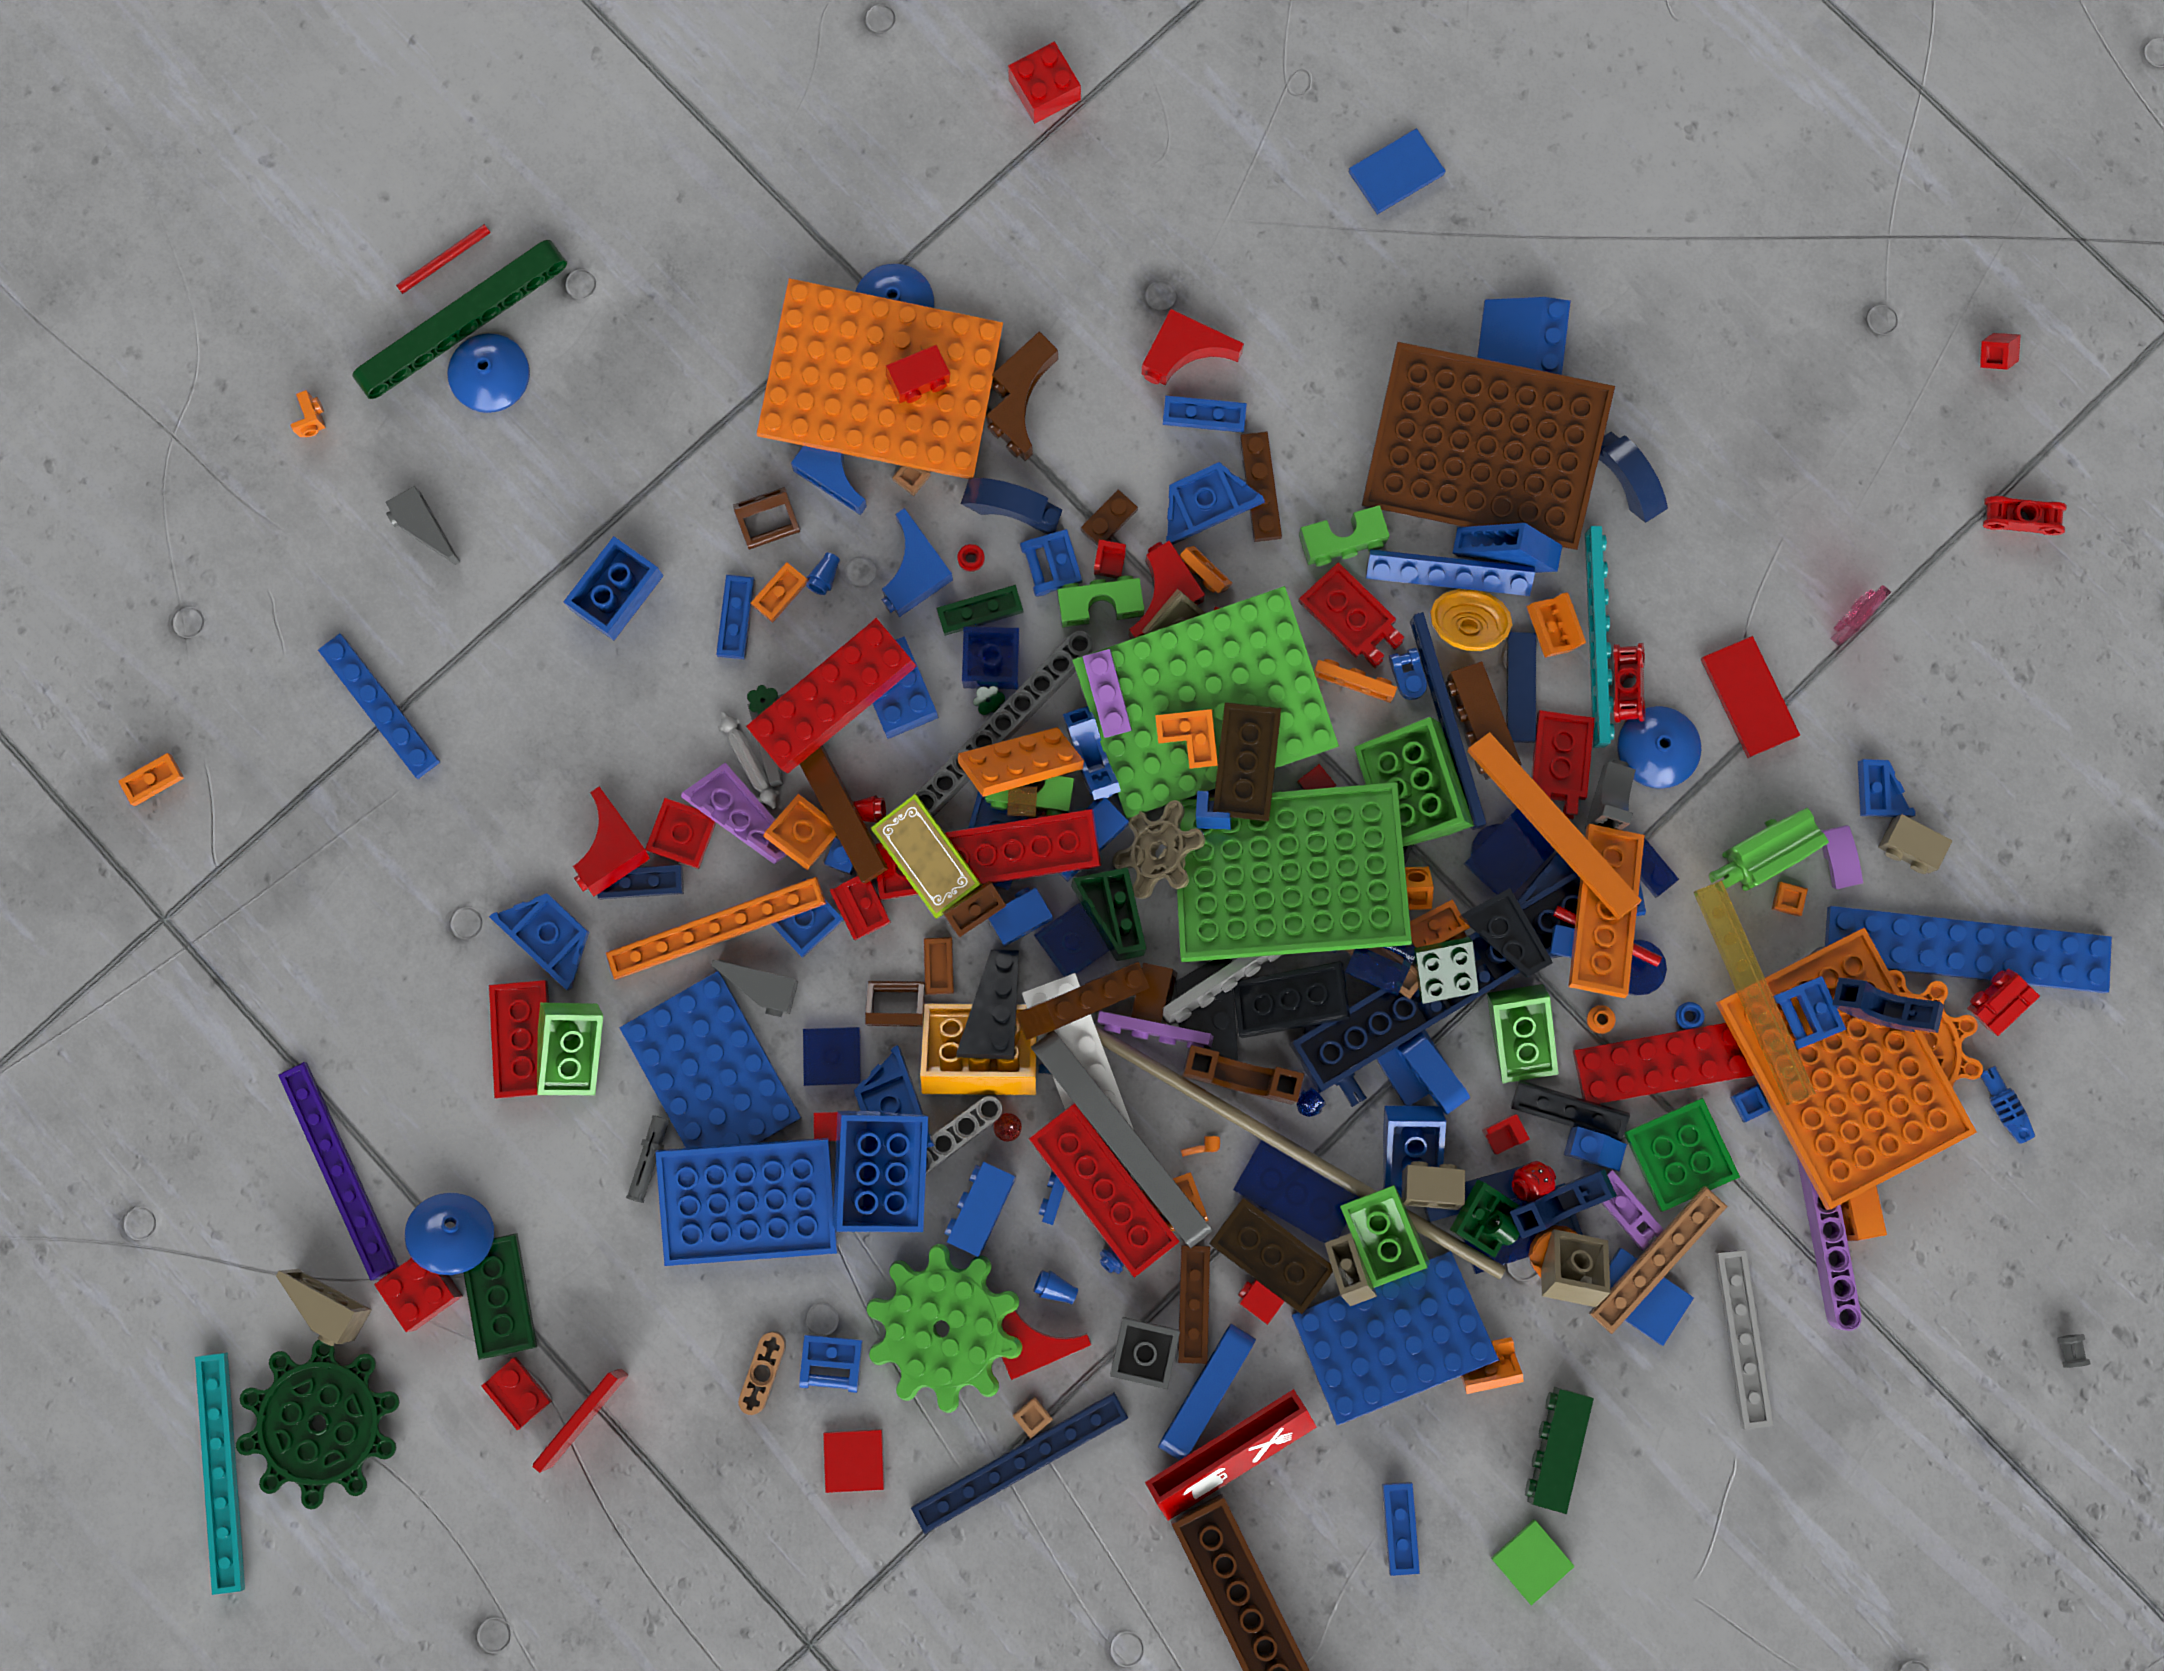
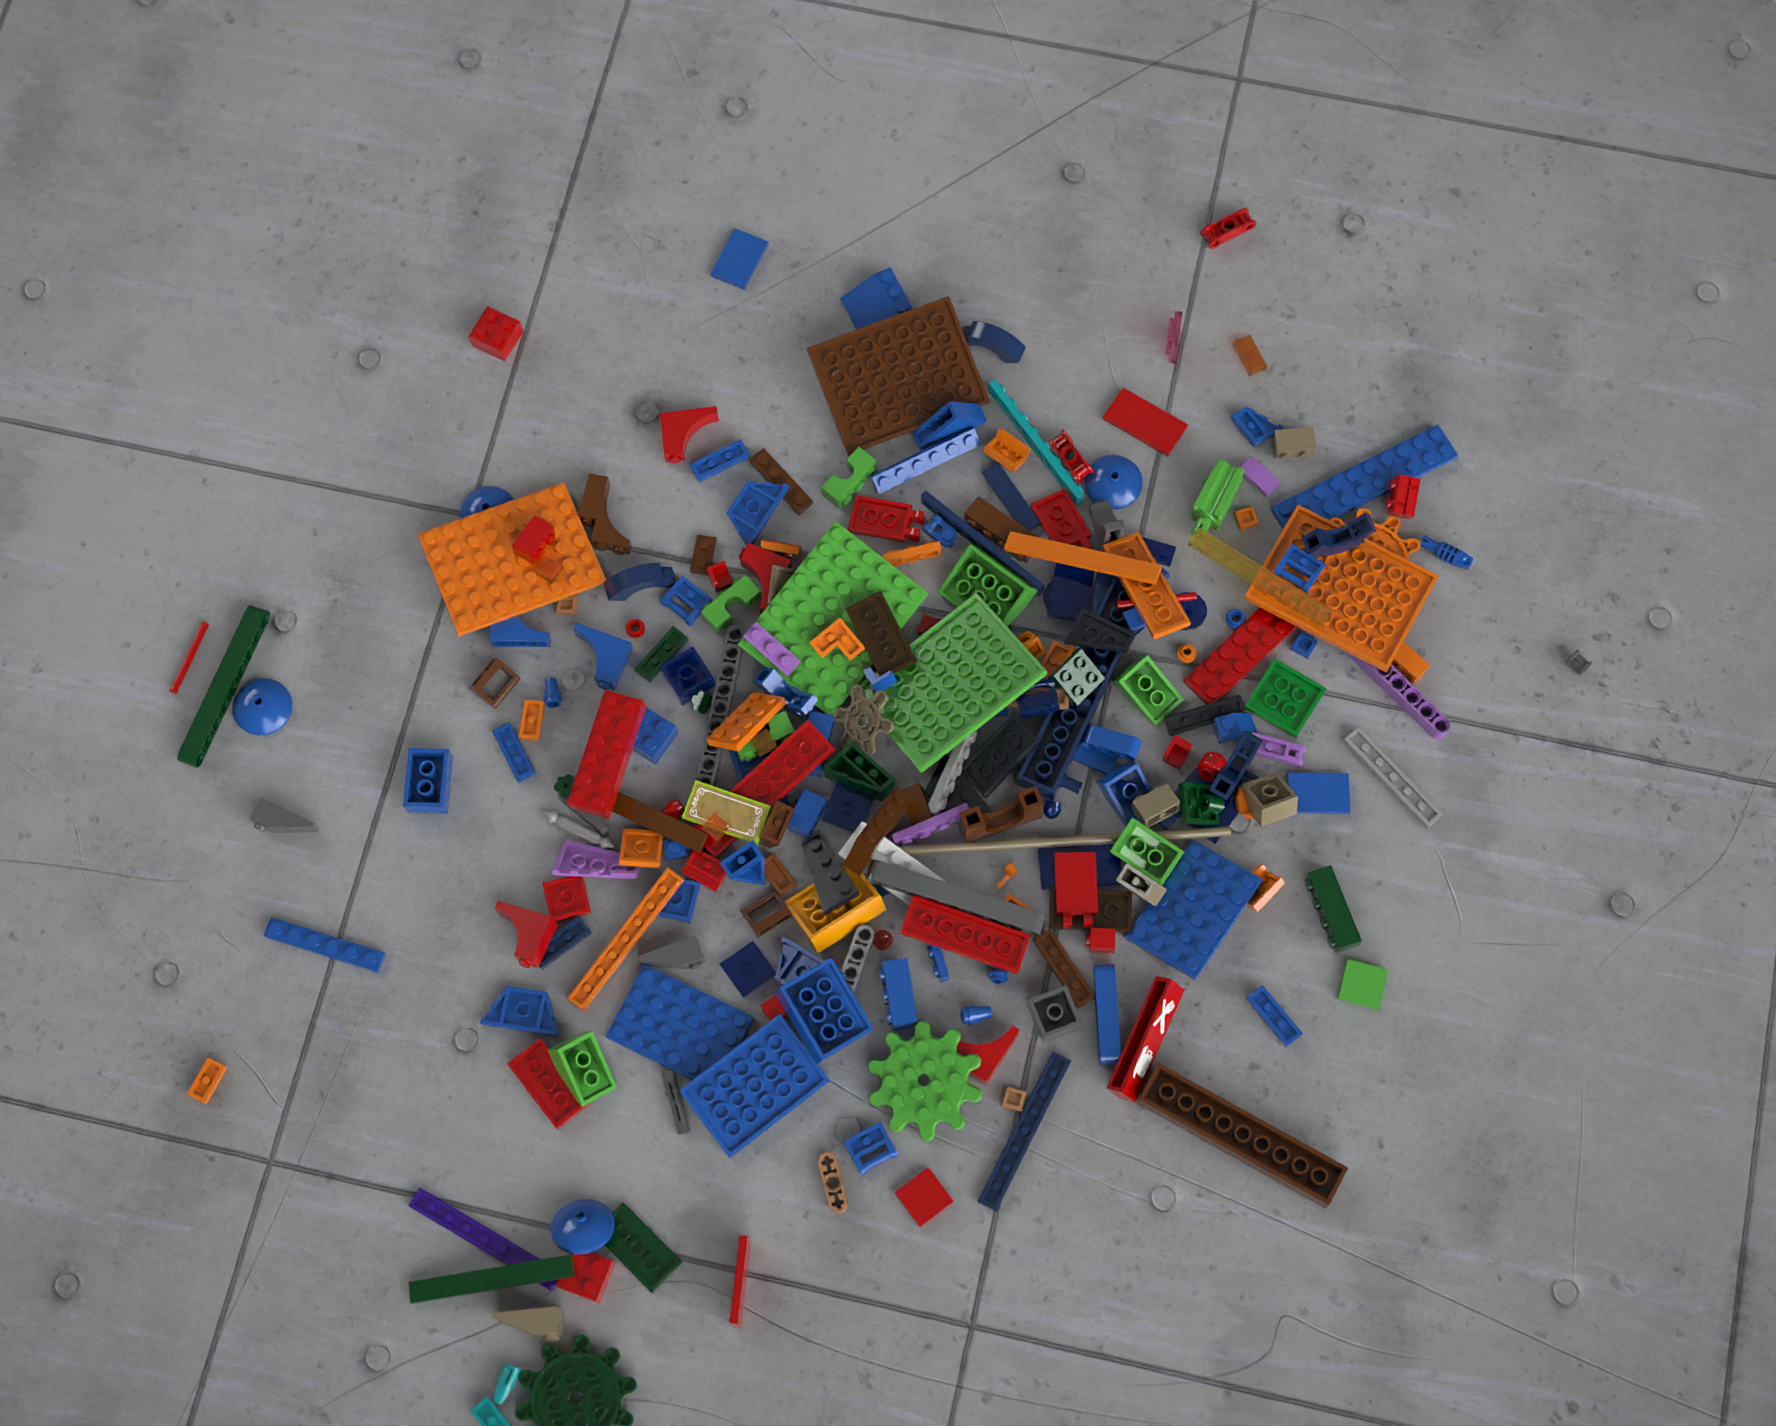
camera: 30 degrees left, 10 degrees down
(254, 1351) = (502, 1389): none -> teal hinge
(311, 1226) = (491, 1279): none -> dark green tile
(312, 412) = (170, 803): orange bracket -> none
(516, 1393) = (688, 1298): red plate -> none
(901, 866) = (716, 826): none -> clear orange tile
(907, 933) = (745, 864): none -> blue slope
(913, 423) = (549, 570): none -> clear orange tile
(1273, 1218) = (1076, 886): none -> red tile
(1471, 619) = (955, 477): light orange hat -> none
(1658, 1259) = (1313, 765): medium nougat tile -> none
(1937, 696) = (1249, 355): none -> clear orange plate
(2000, 351) = (1152, 148): red panel -> none

